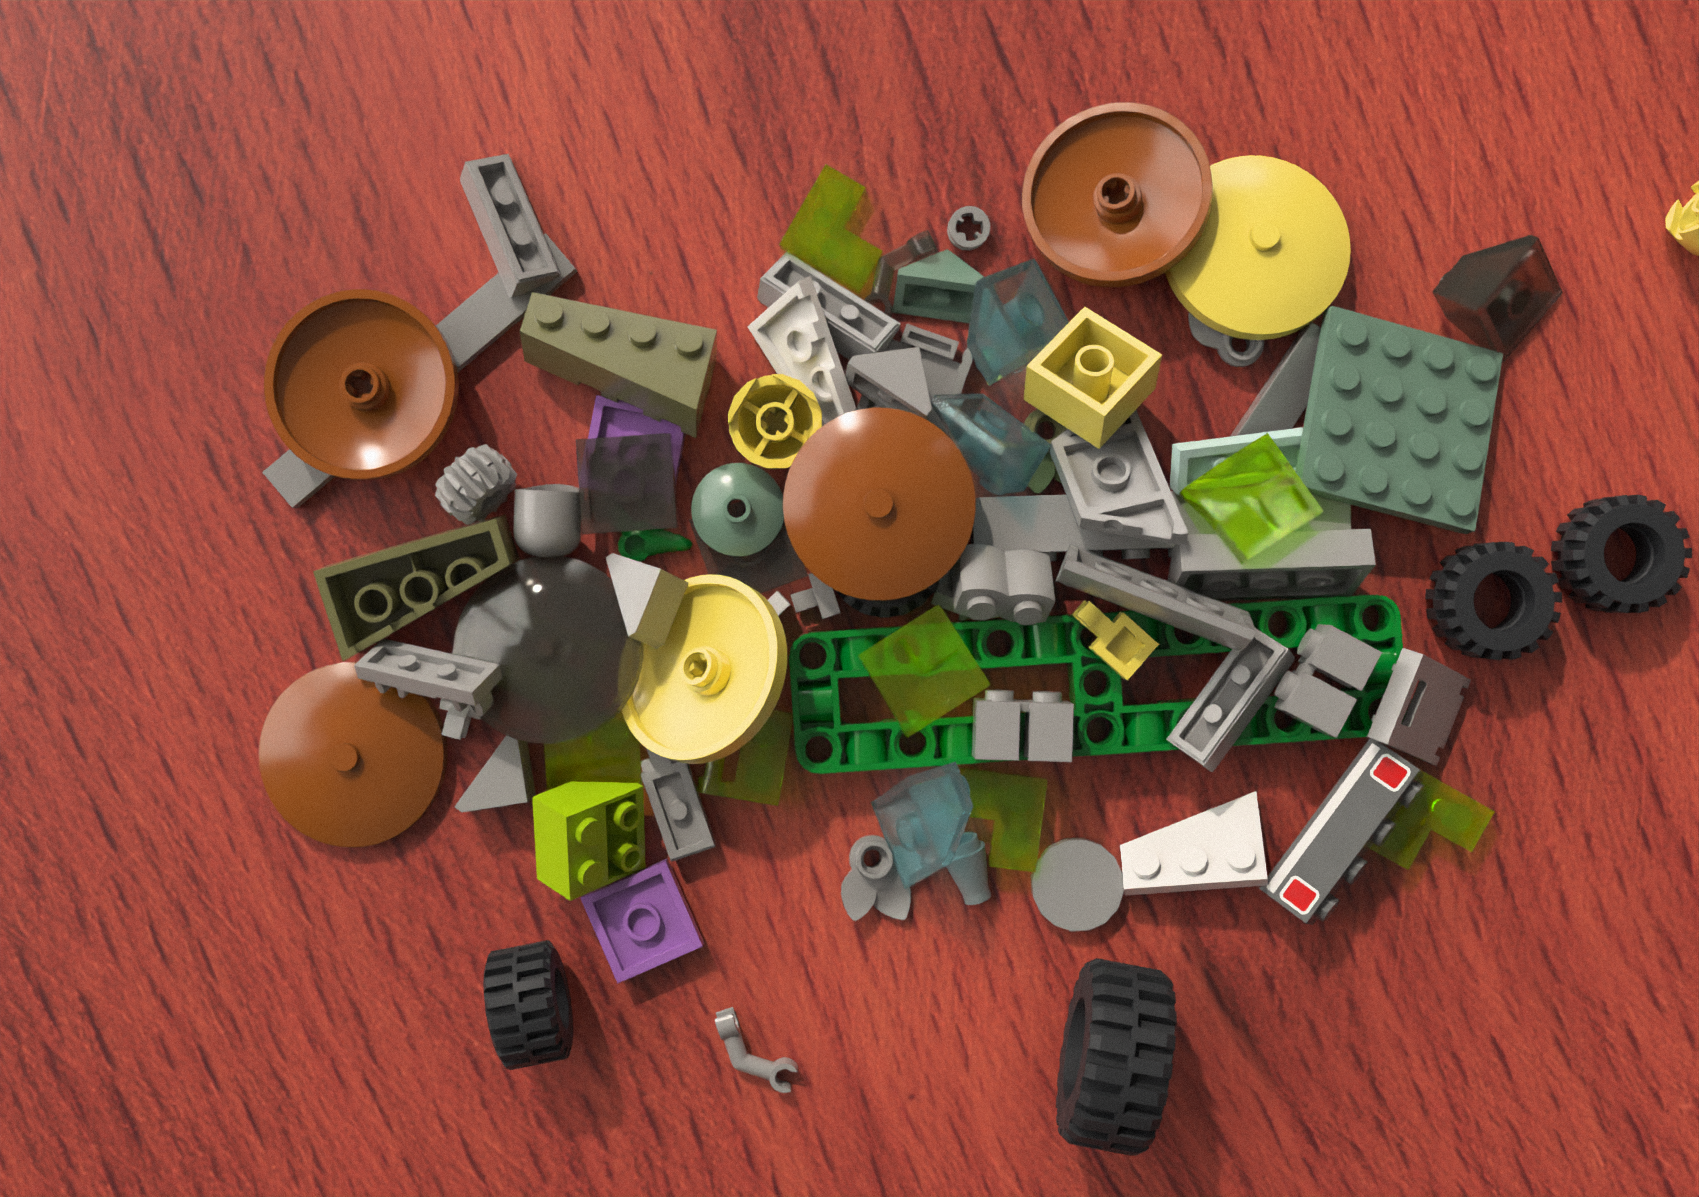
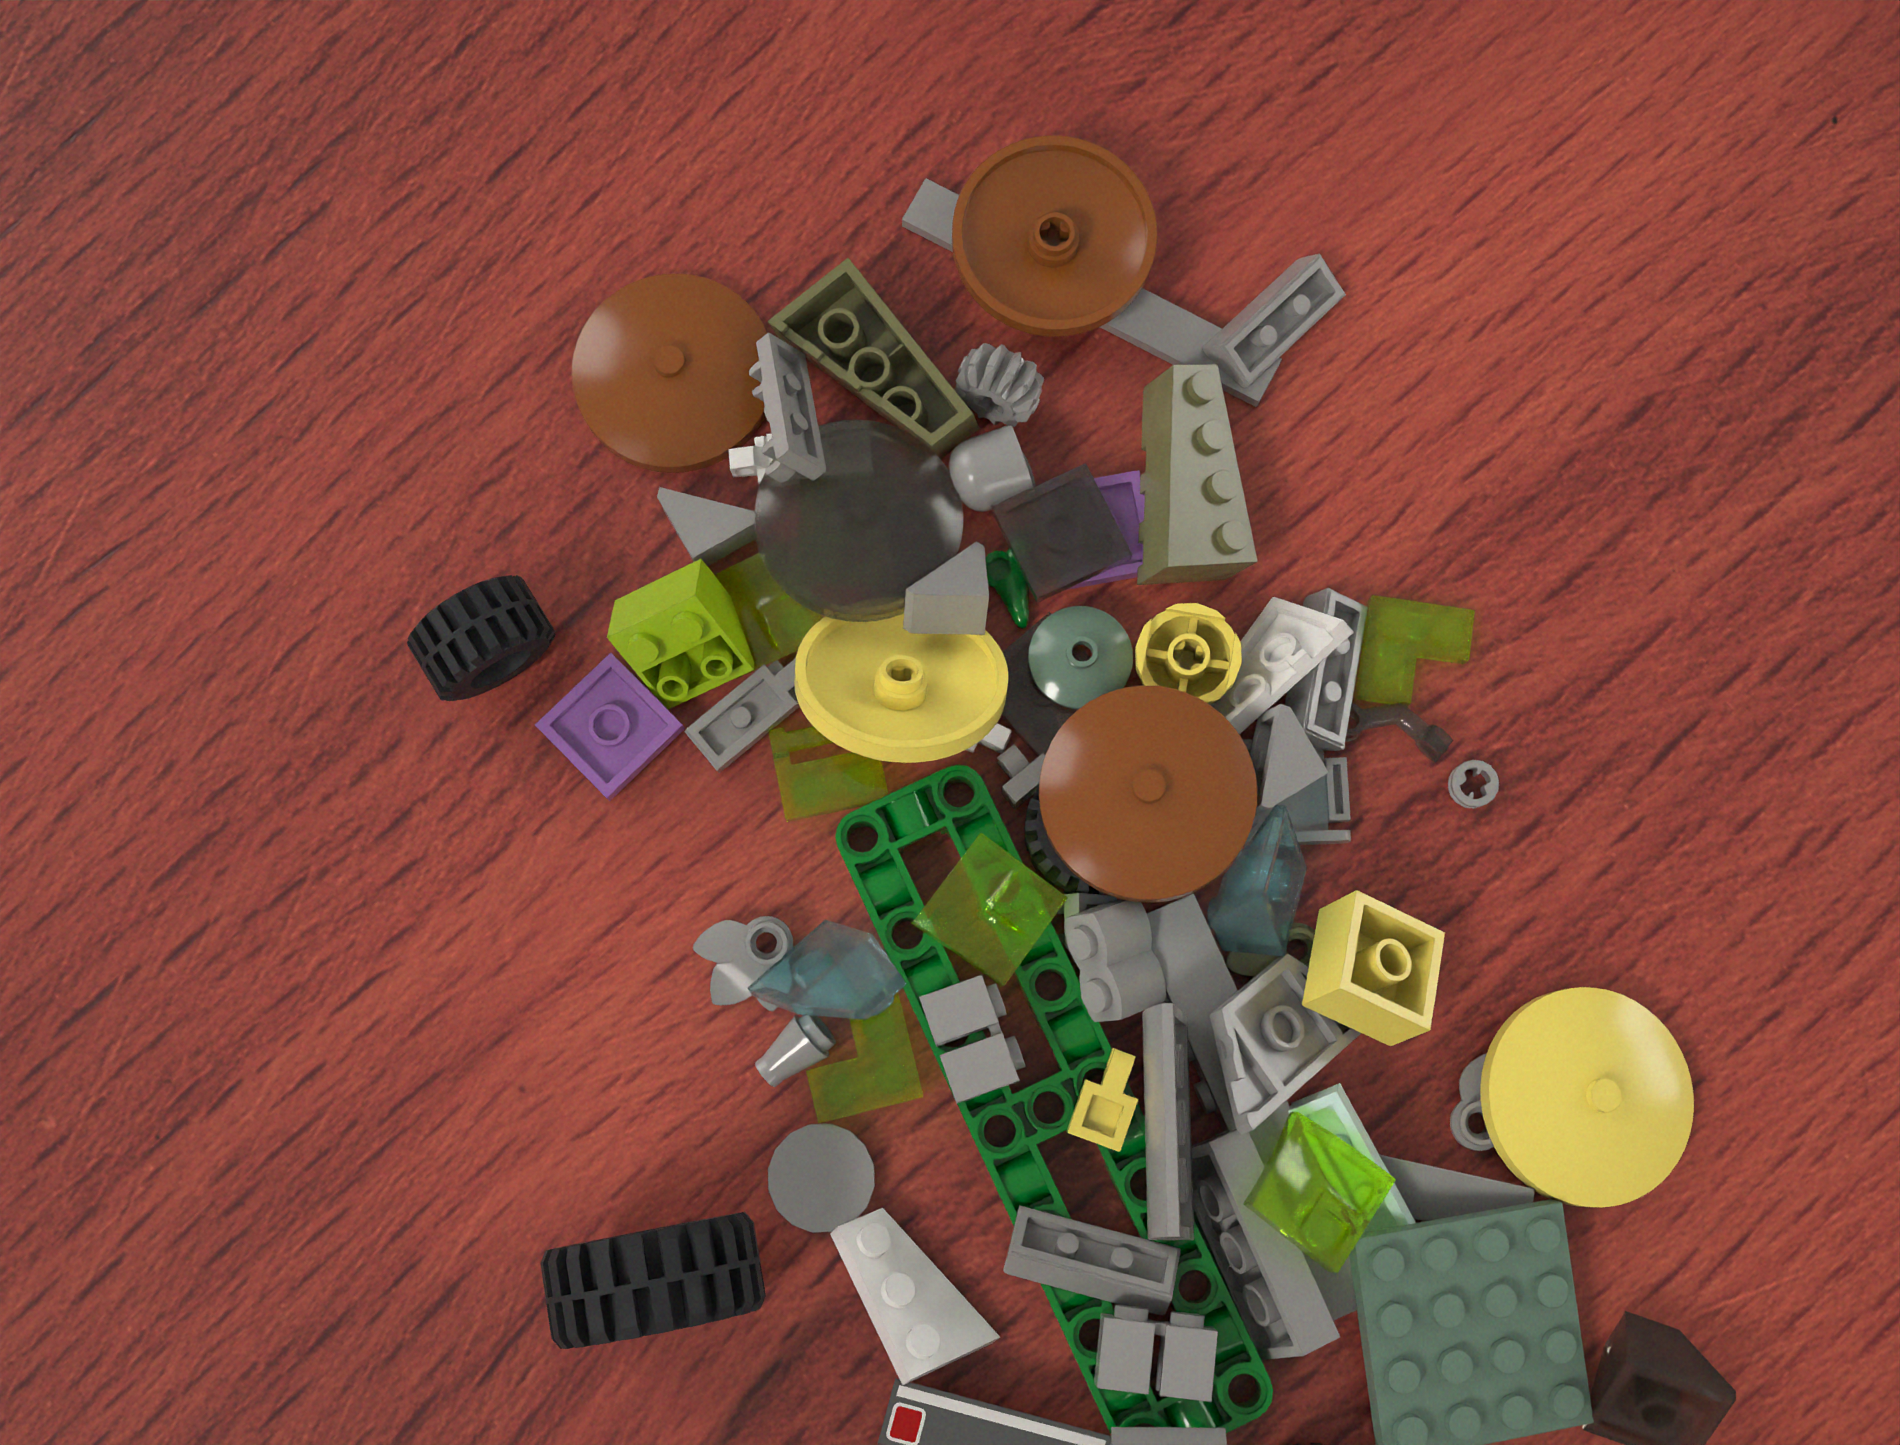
camera: 65 degrees right, 10 degrees down
(730, 1033) = (525, 863): light grey arm -> none
(936, 288) = (1397, 780): sand green slope -> none
(1012, 320) = (1398, 861): clear light blue slope -> none
(1117, 194) = (1577, 923): dark orange dish -> none

